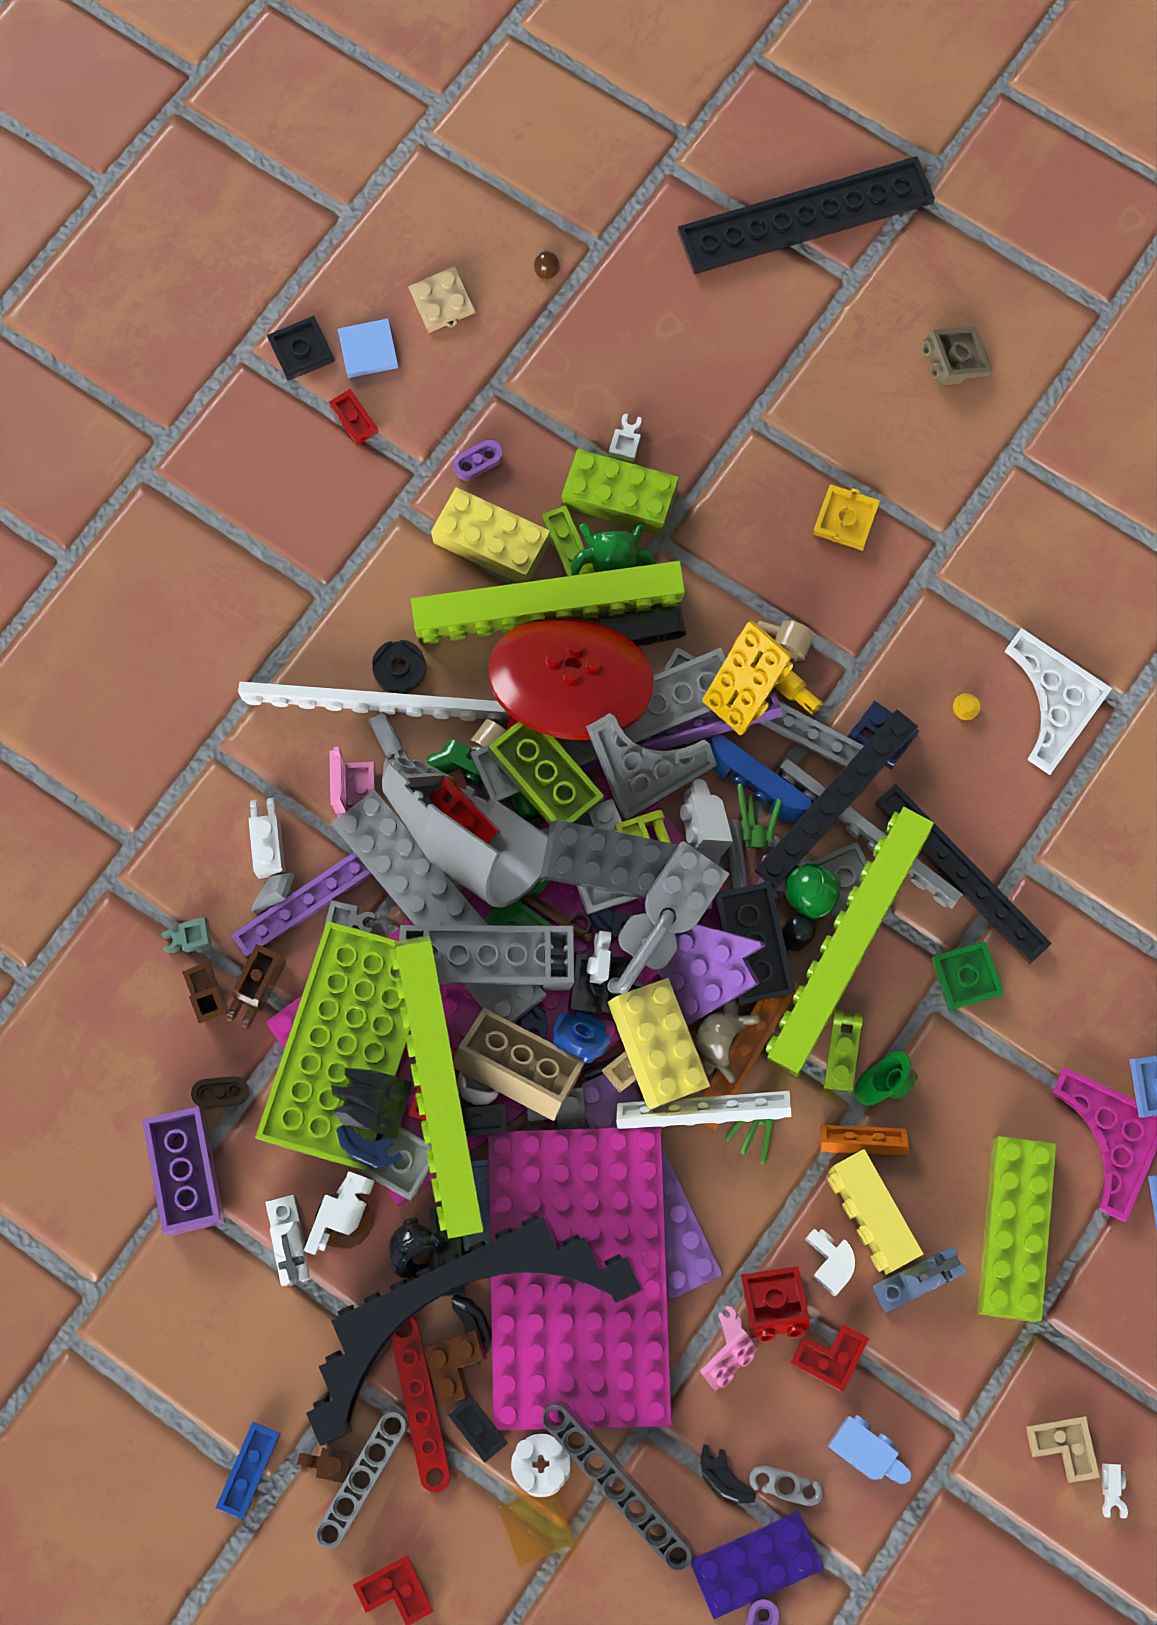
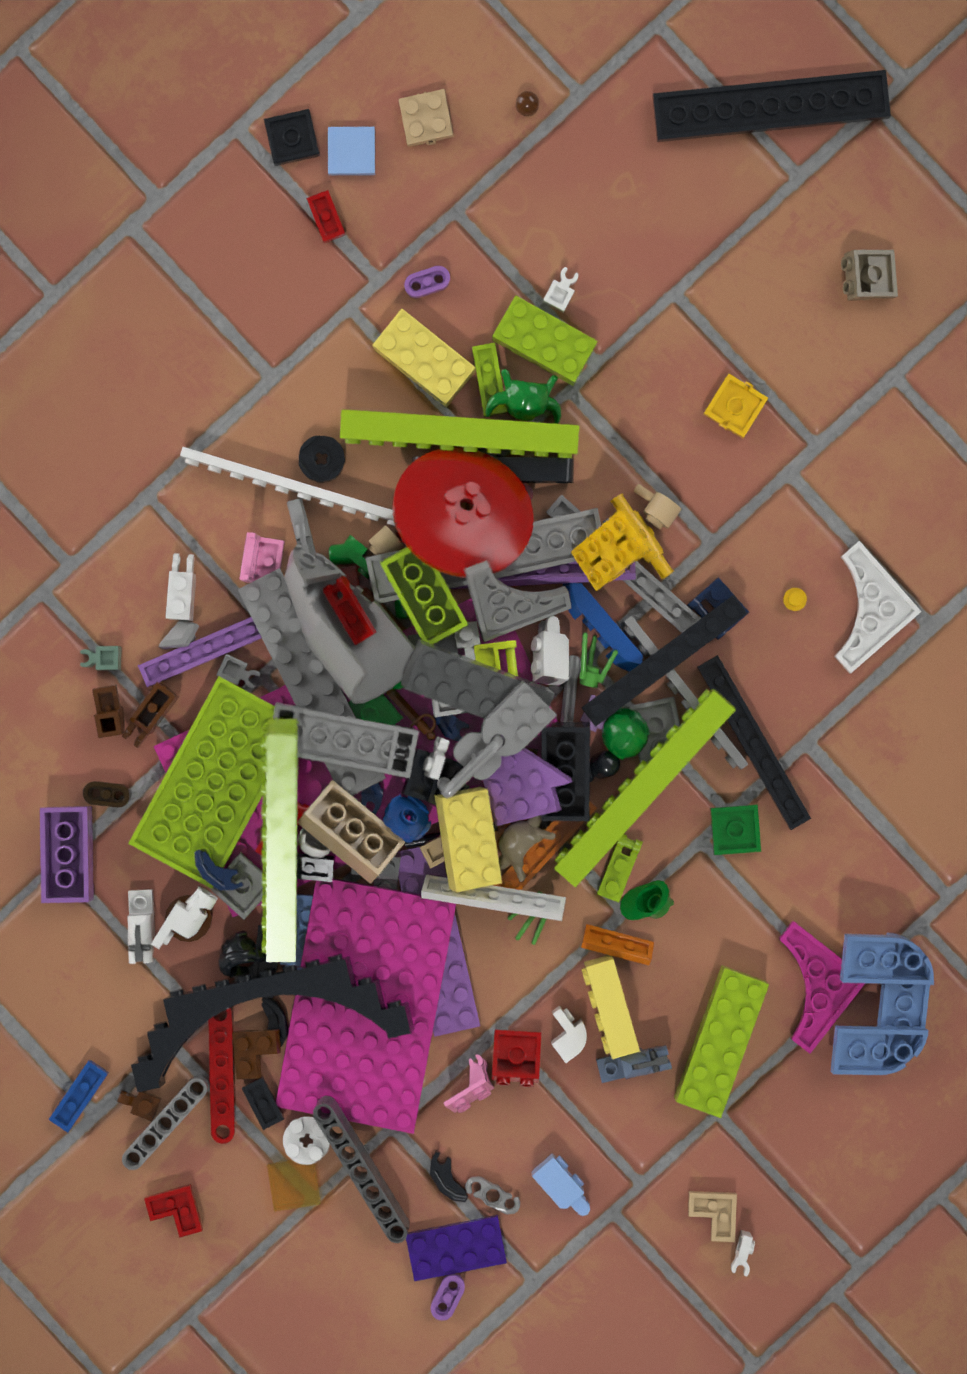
camera: 10 degrees right, 15 degrees up
(372, 1101) = (227, 836): black plate -> none
(831, 1365) = (553, 1113): red plate -> none

